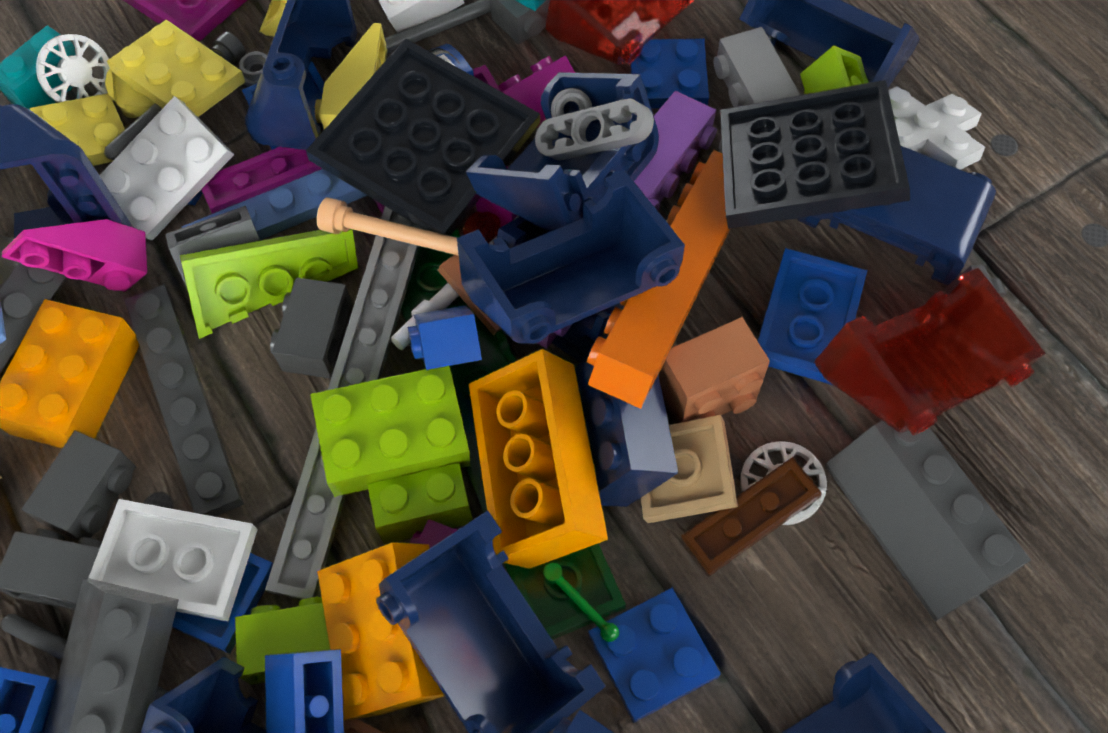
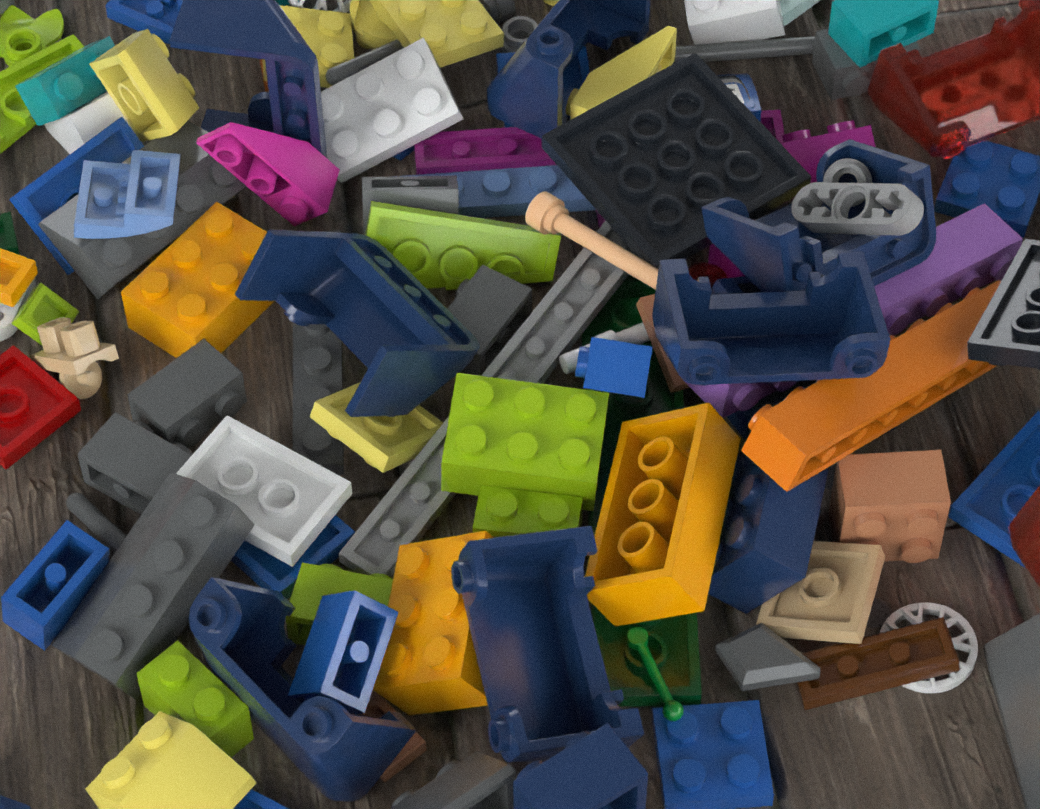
camera: 20 degrees right, 10 degrees down
(215, 349) = (371, 306): none -> dark blue windscreen
(256, 452) = (379, 440): none -> light yellow plate
(662, 550) = (764, 659): none -> dark grey piece

